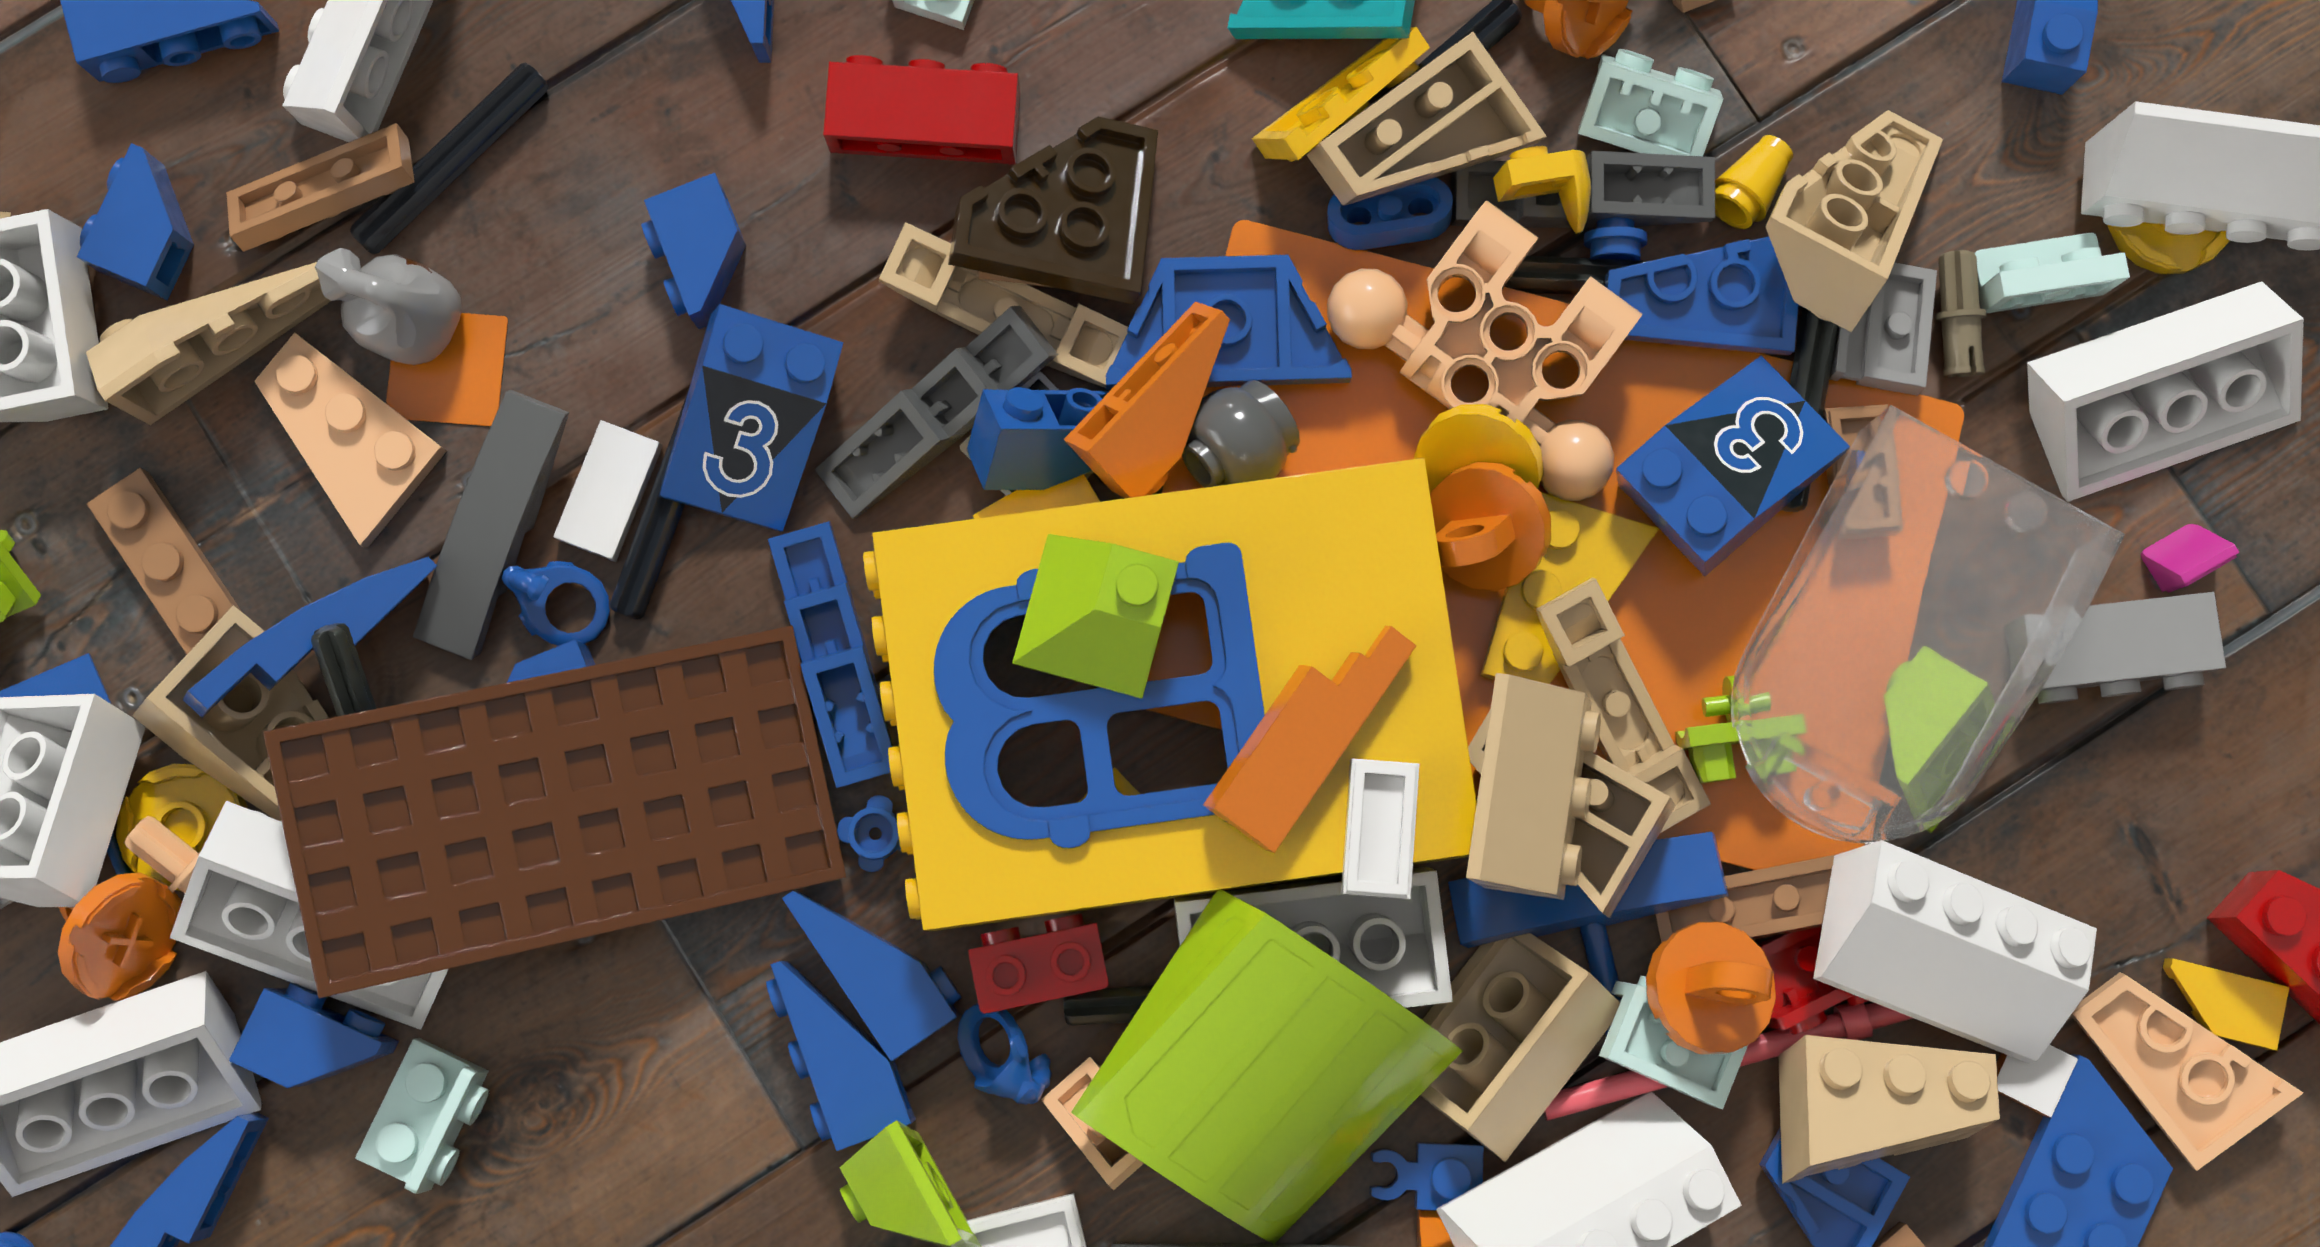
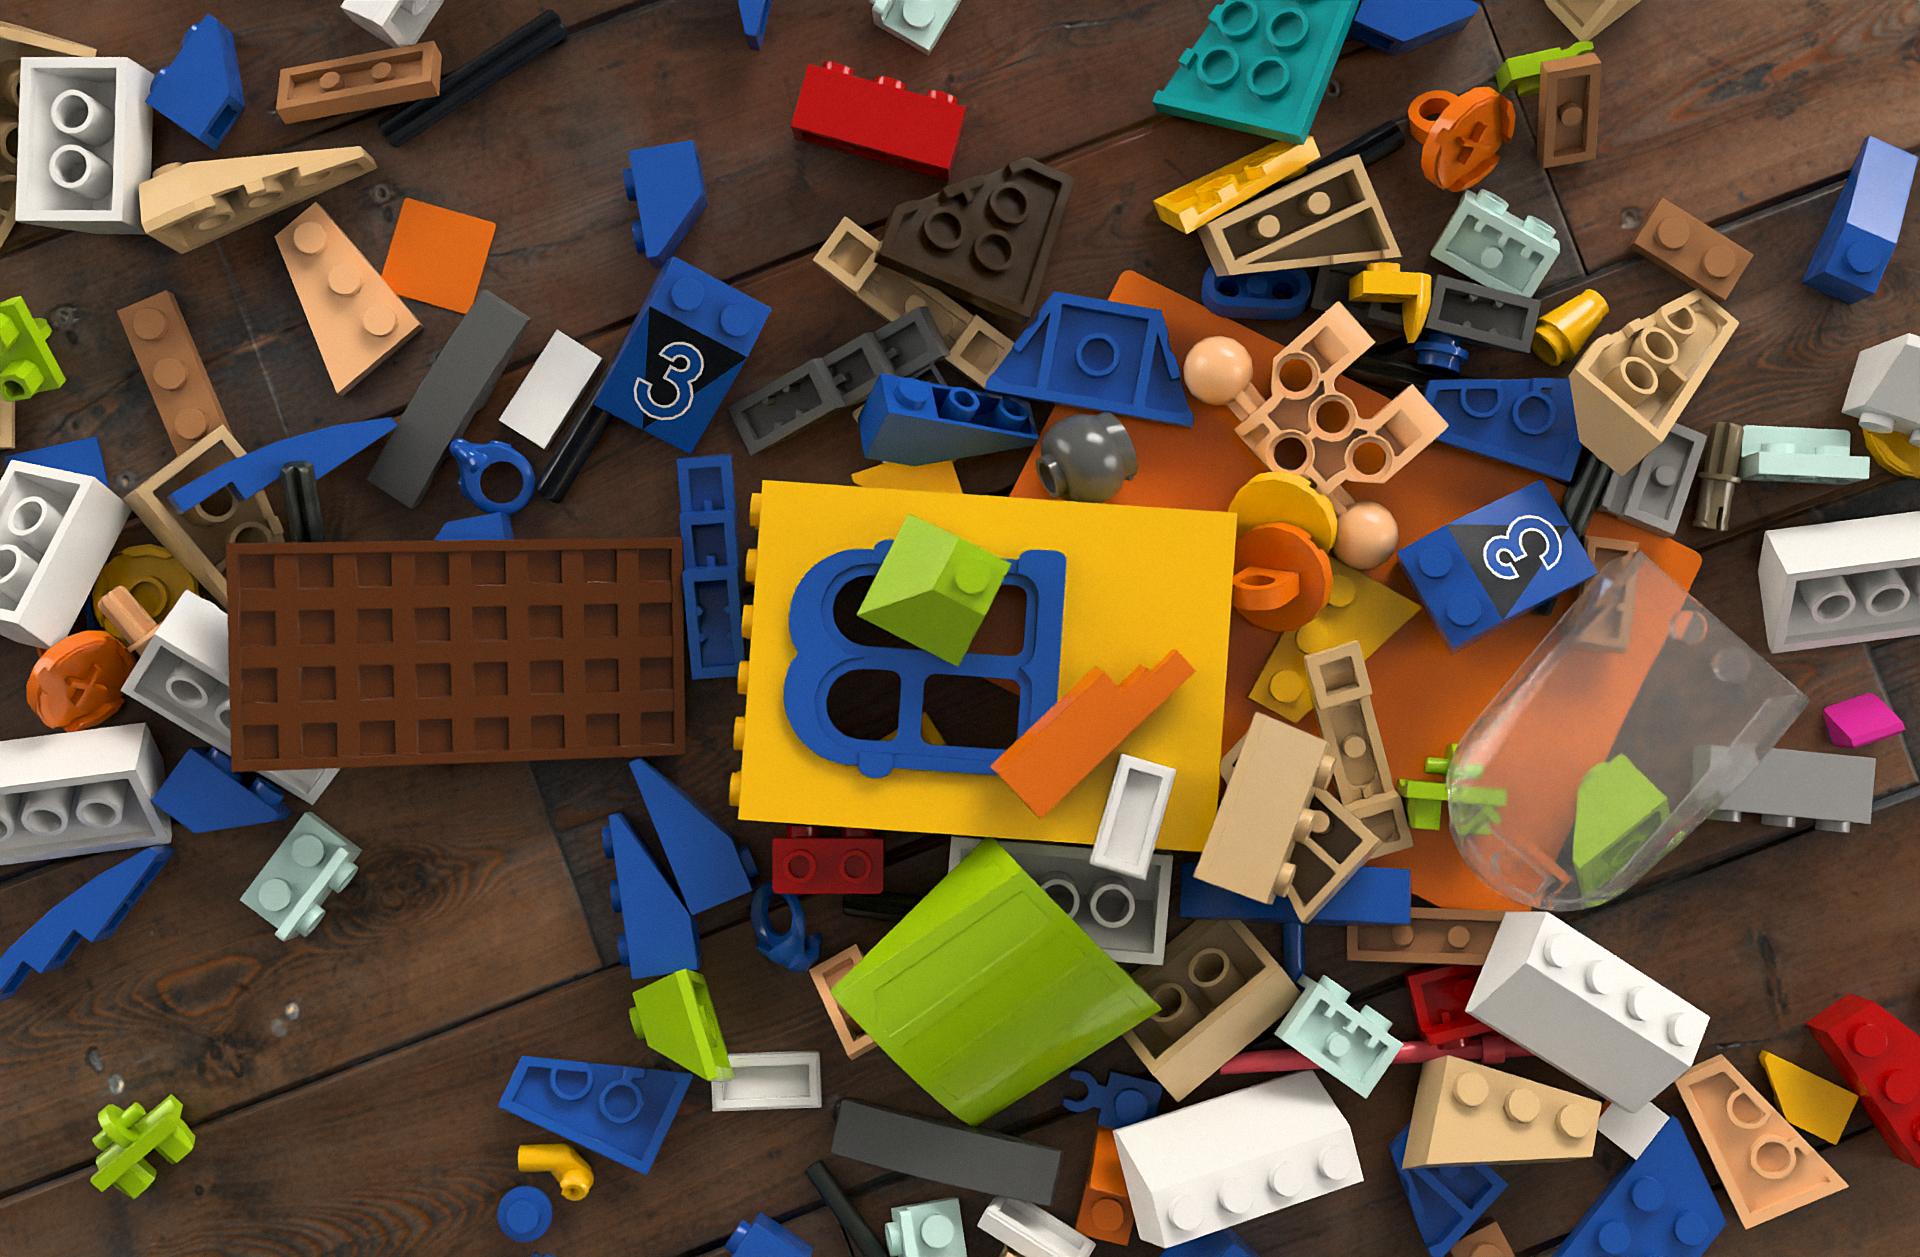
camera: 15 degrees right, 5 degrees up
(392, 304) = (401, 196): light grey piece -> none
(857, 833) = (702, 716): blue plate -> none
(1149, 413) = (1014, 424): orange slope -> none
(1711, 988) = (1378, 999): orange tile -> none
(1869, 70) = (1691, 250): none -> medium nougat plate

